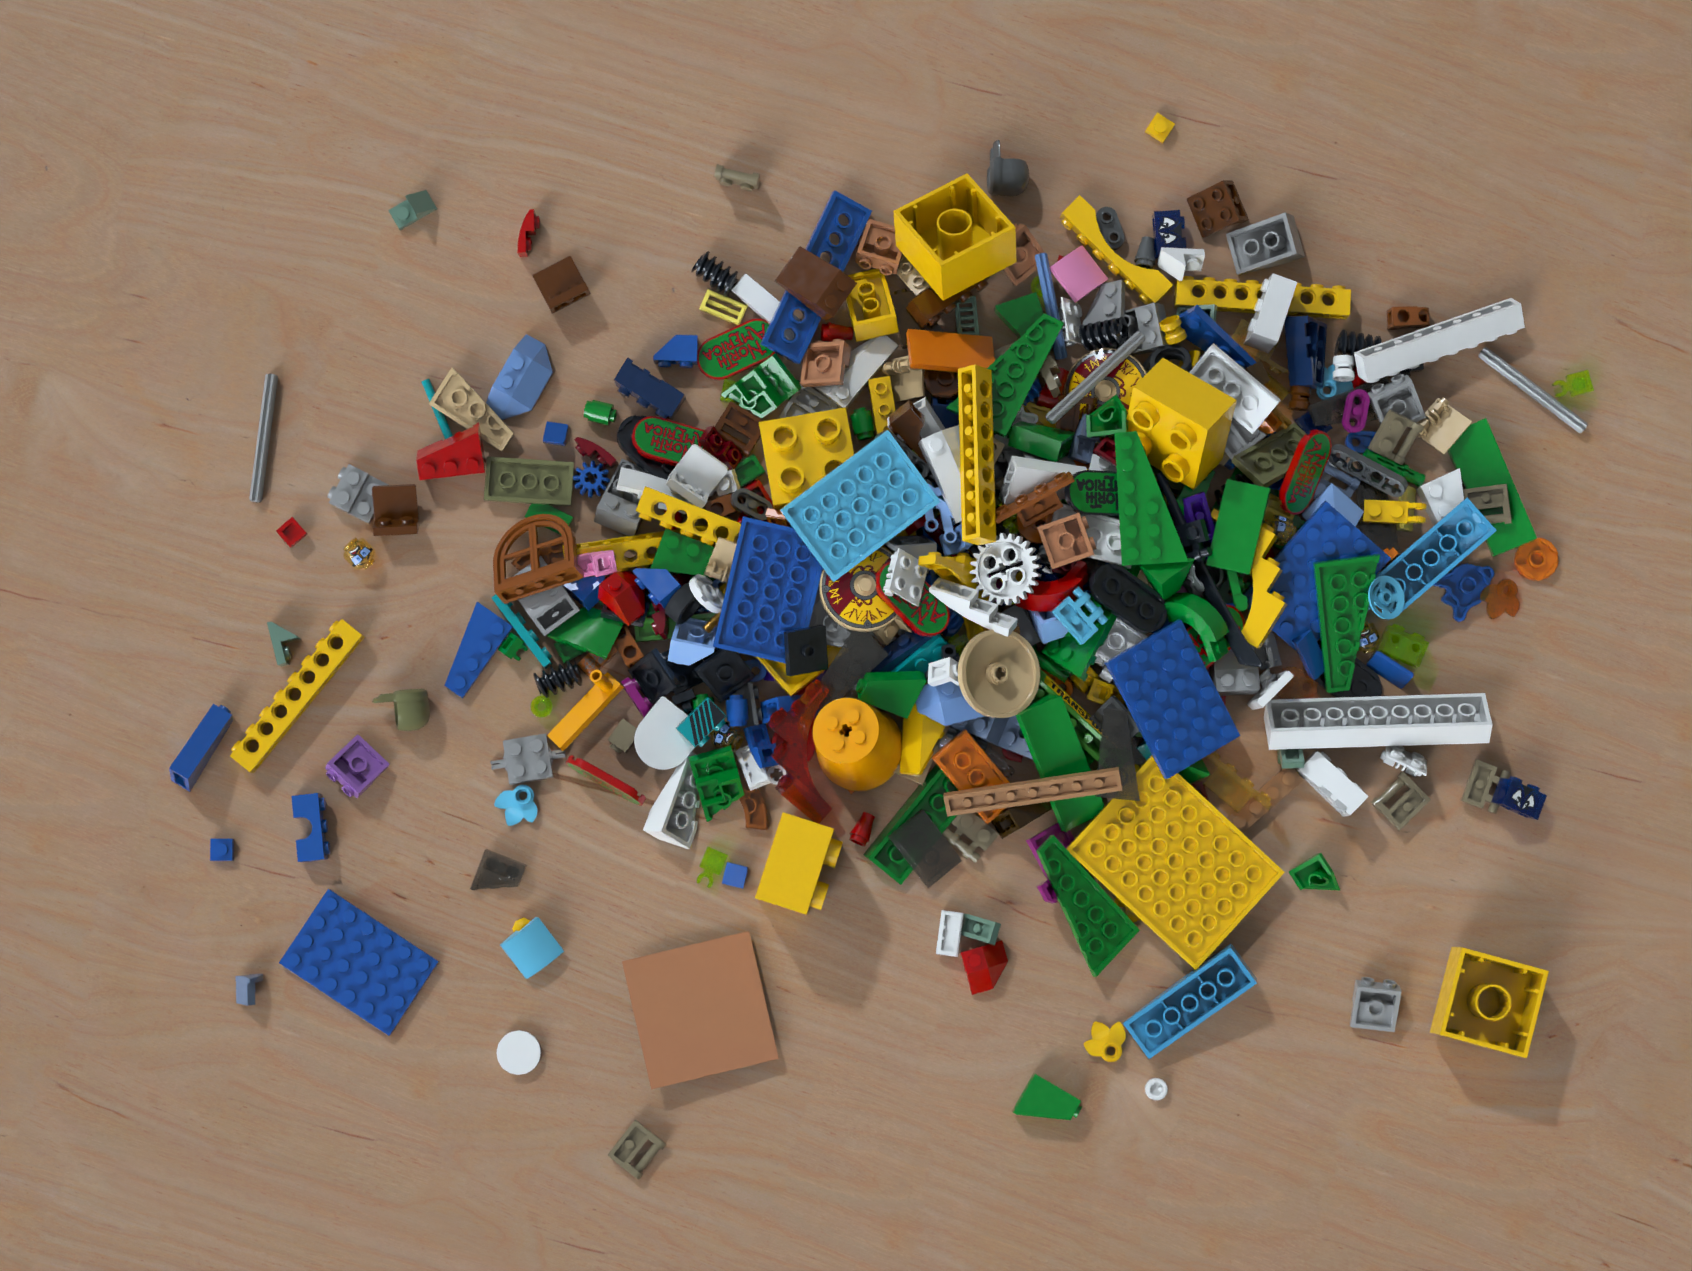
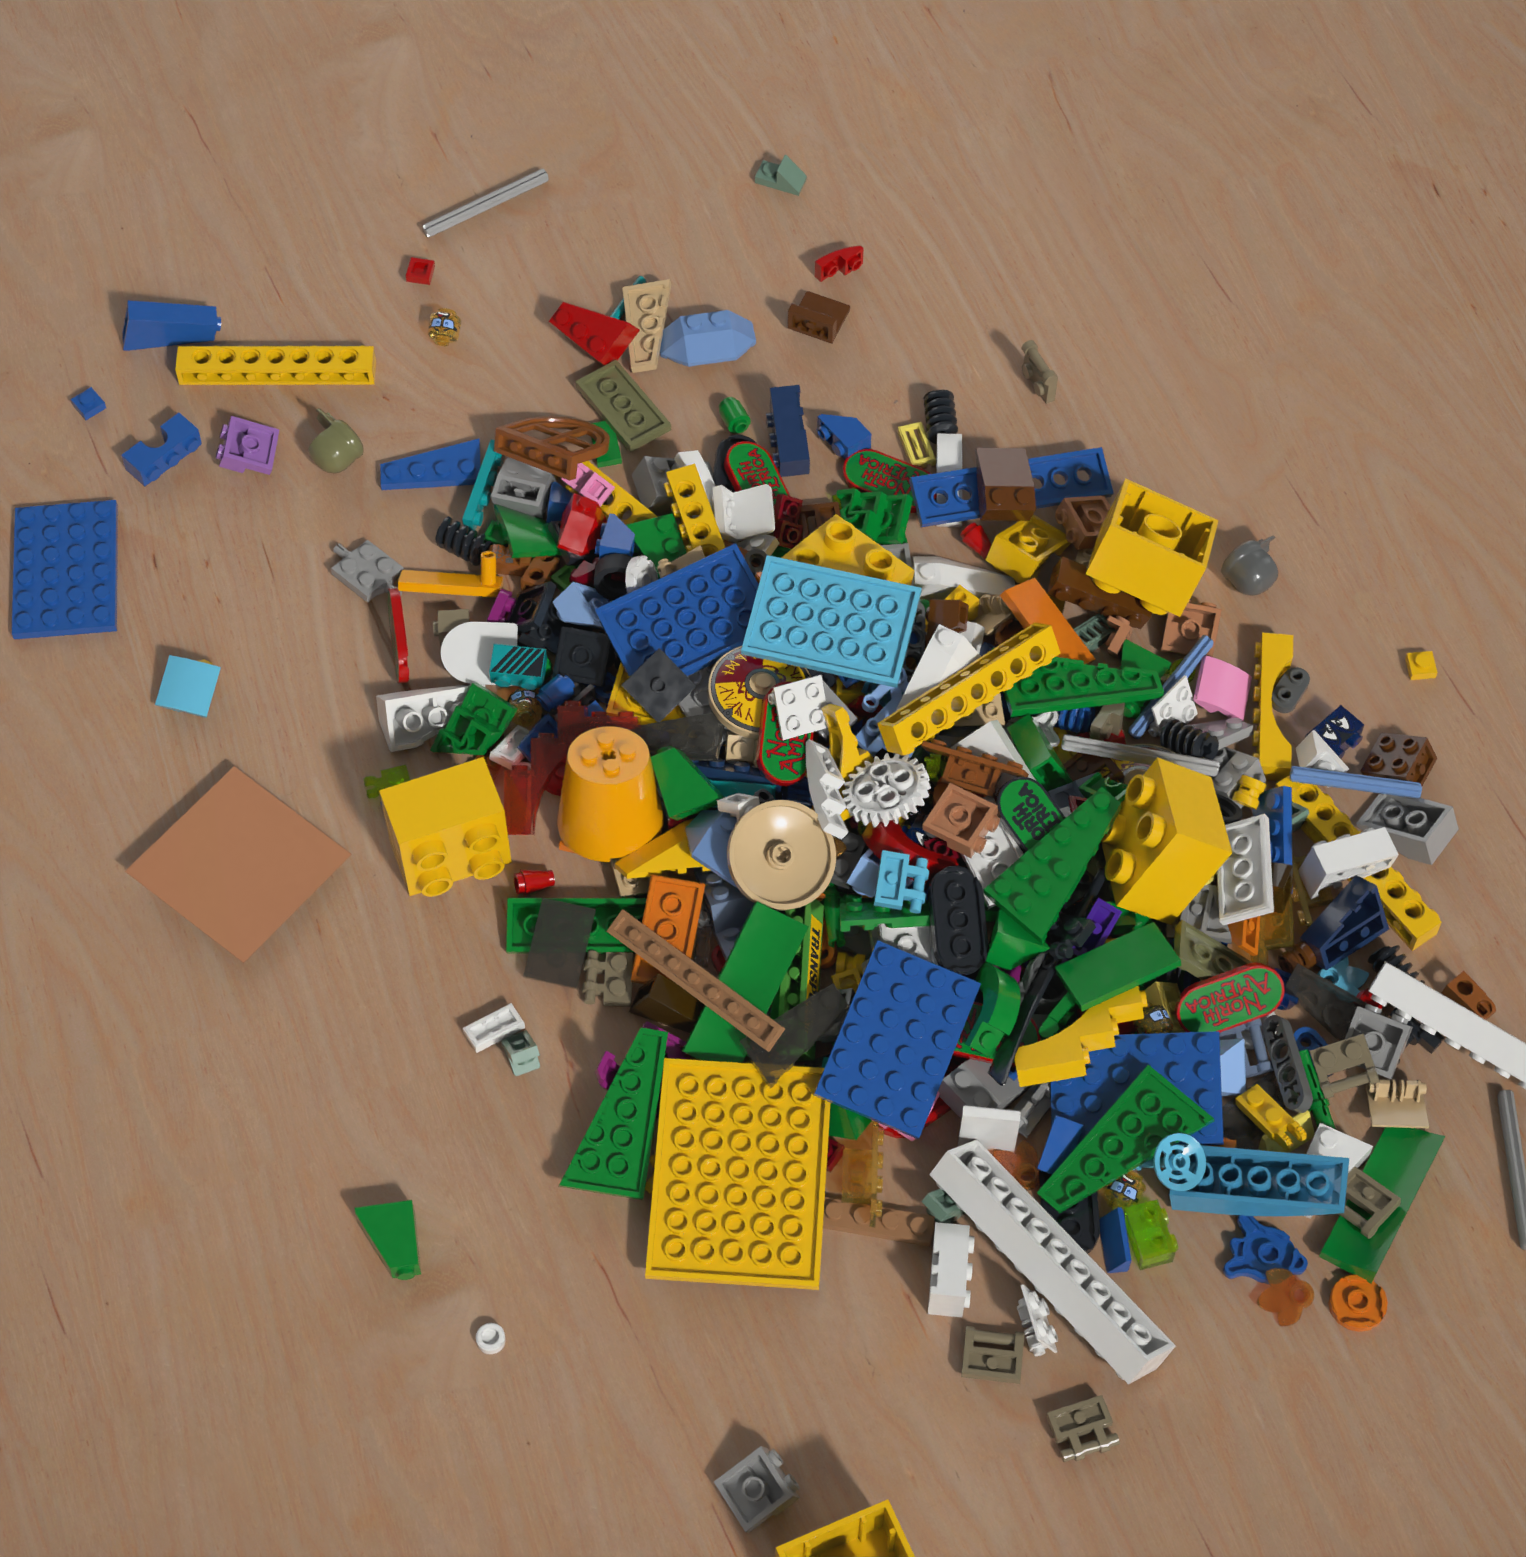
camera: 55 degrees right, 25 degrees down
(279, 637) = (313, 322): sand green slope -> none
(355, 493) = (497, 294): light grey plate -> none
(395, 510) = (508, 324): reddish brown bracket -> none
(497, 872) = (239, 615): clear smoke wing -> none
(511, 646) = (460, 488): green tile -> none
(515, 807) = (315, 591): medium azure plate -> none
(518, 1052) = (77, 747): white tile -> none
(534, 706) = (425, 543): clear neon green plate -> none
(555, 433) = (683, 398): blue slope -> none
(590, 448) = (694, 429): dark red slope -> none
(595, 472) = (667, 443): blue gear -> none
(629, 1146) = (55, 897): dark tan plate -> none
(825, 363) = (942, 543): nougat plate -> none
(984, 966) = (486, 1080): red slope -> none
(988, 309) = (1117, 639): none -> nougat bracket
(1103, 1038) = (502, 1249): yellow plate -> none
(1146, 253) = (1296, 731): dark grey cone -> none
(1190, 1001) = (611, 1298): dark azure slope -> none
(1217, 254) = (1355, 782): none -> medium blue axle
(1314, 874) = (843, 1324): green slope -> none
(1343, 368) = (1362, 973): white wheel -> none
(1356, 412) = (1331, 1009): magenta plate -> none
(1519, 798) = (1101, 1466): clear blue brick -> none

